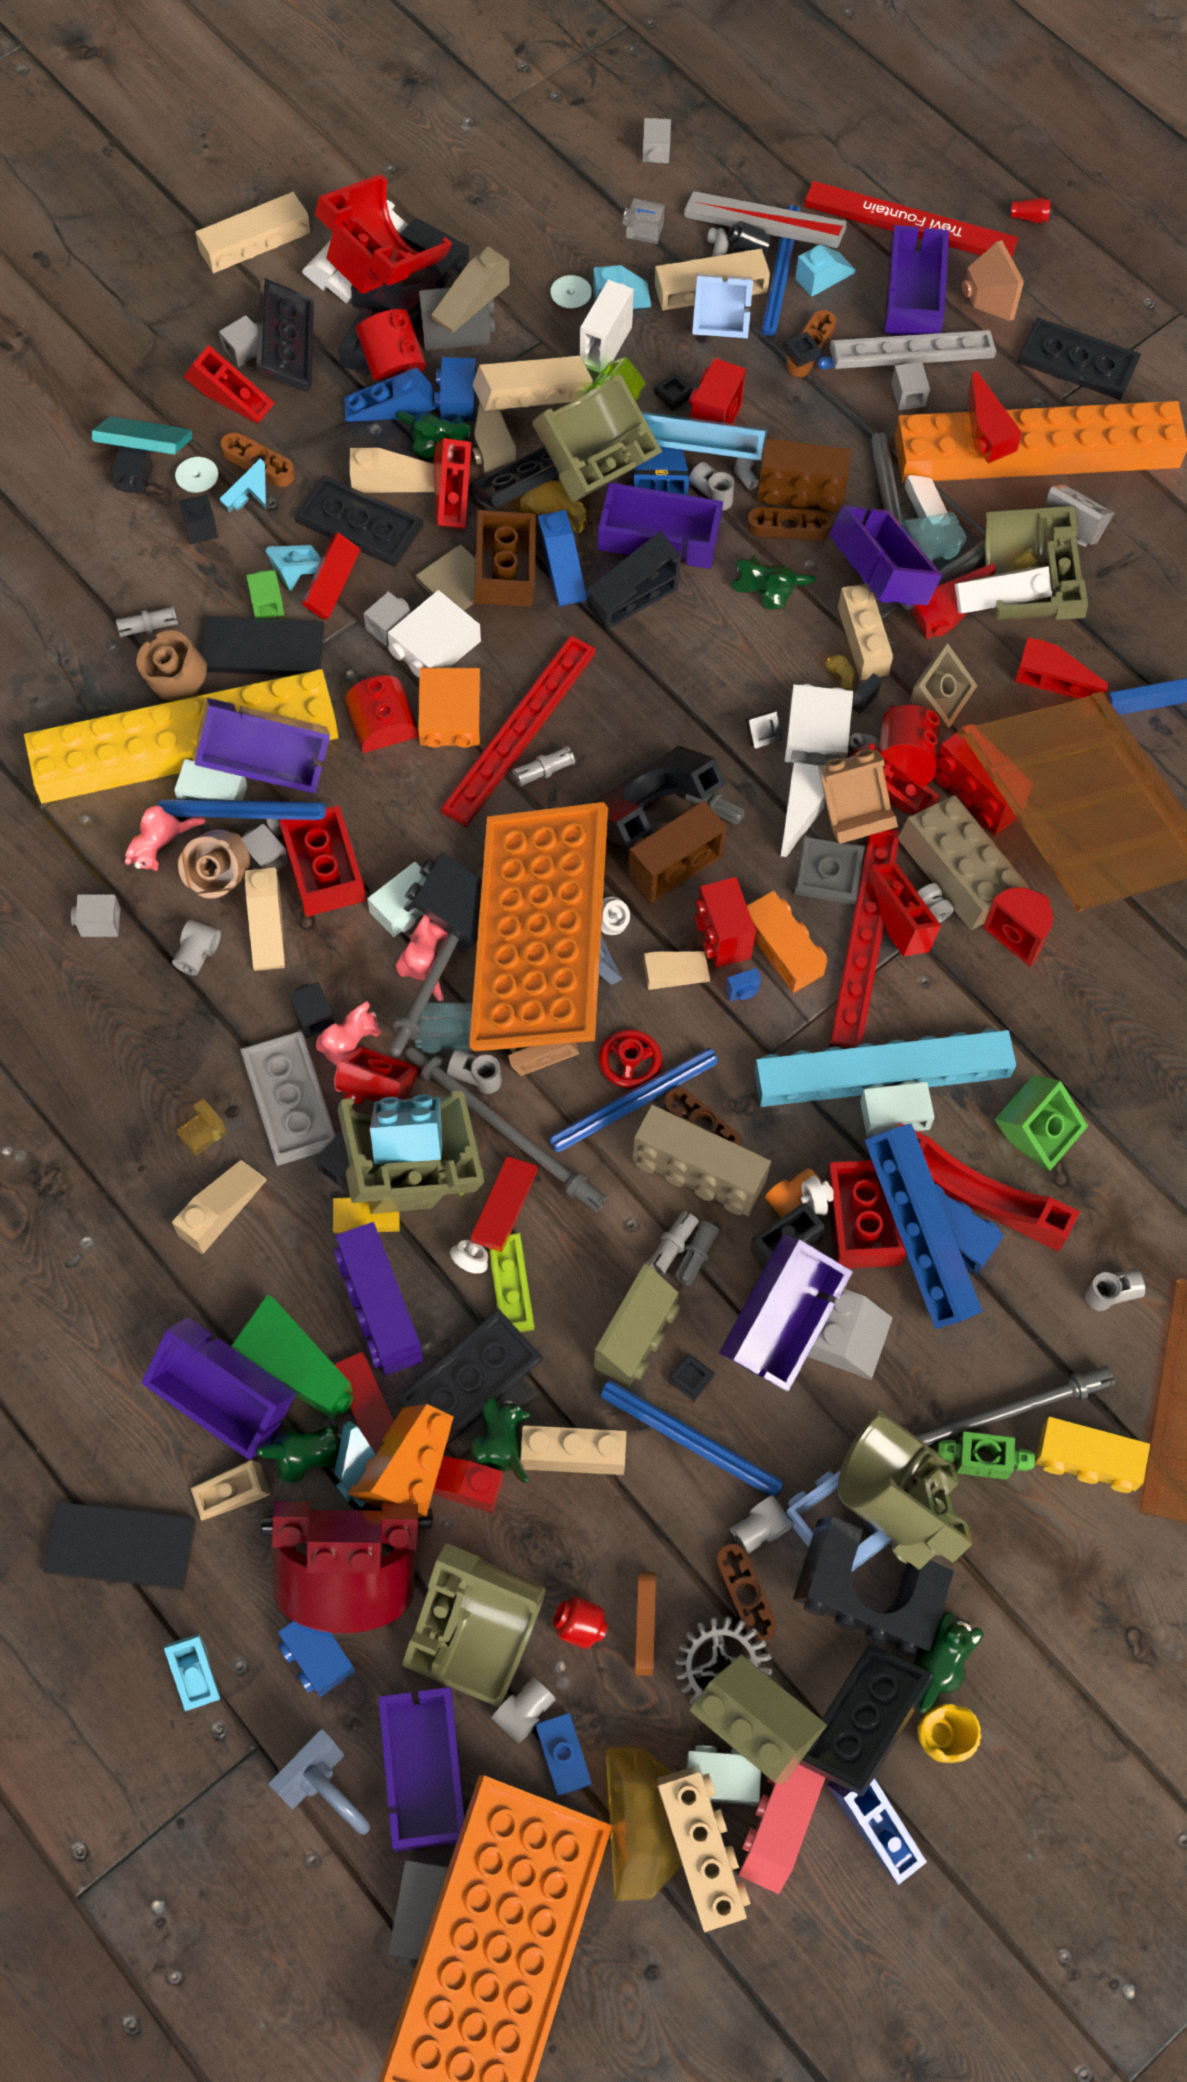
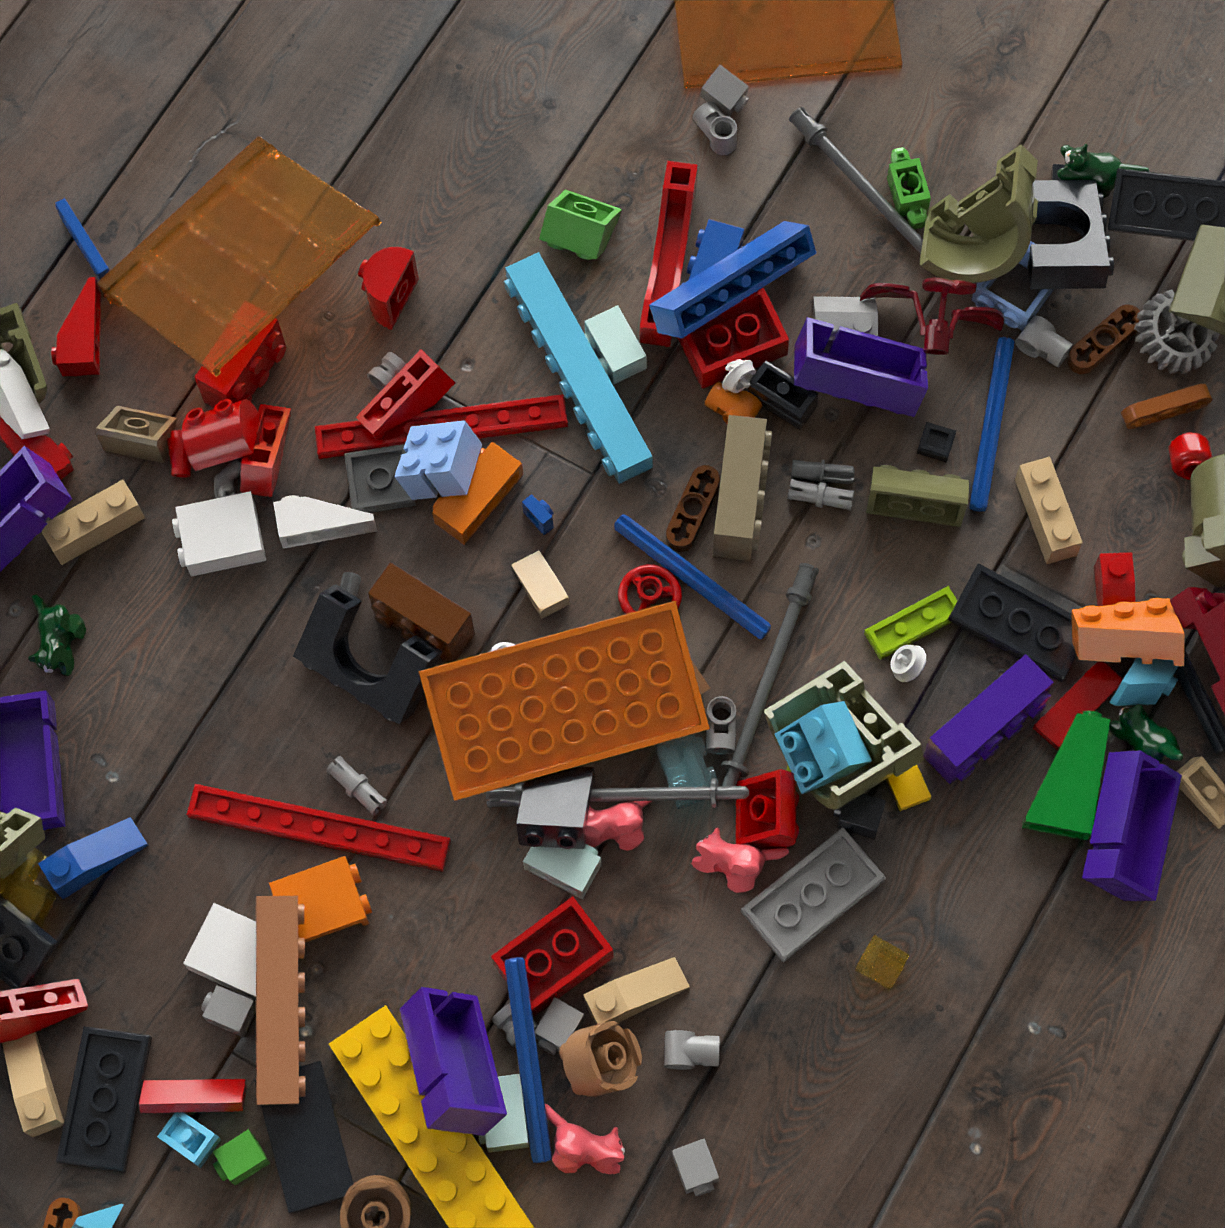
camera: 105 degrees left, 5 degrees up
(217, 1206) = (951, 911): tan slope -> none
(311, 1009) = (716, 906): black brick -> none
(374, 641) = (277, 1000): none -> nougat brick
(380, 713) = (352, 973): red brick -> none
(452, 576) = (150, 961): dark tan tile -> none
(501, 1443) = (1074, 567): dark green animal -> none
(504, 558) = (117, 910): reddish brown brick -> none
(504, 1204) = (856, 650): red tile -> none
(635, 582) = (105, 766): black wedge -> none
(724, 922) = (484, 544): red brick -> none
(763, 728) = (241, 584): plate -> none
(800, 1403) = (938, 333): none -> dark red plant
(822, 908) = (444, 454): none -> light blue piece
(844, 669) = (143, 530): clear yellow arm -> none
(857, 796) = (304, 463): medium nougat panel -> none
(866, 693) = (164, 499): black tile -> none
(949, 1733) = (1153, 147): yellow hair -> none
(959, 859) = (336, 356): dark tan brick -> none
(1092, 1455) = (873, 108): yellow brick -> none
(1153, 1308) = (725, 91): none -> light grey brick

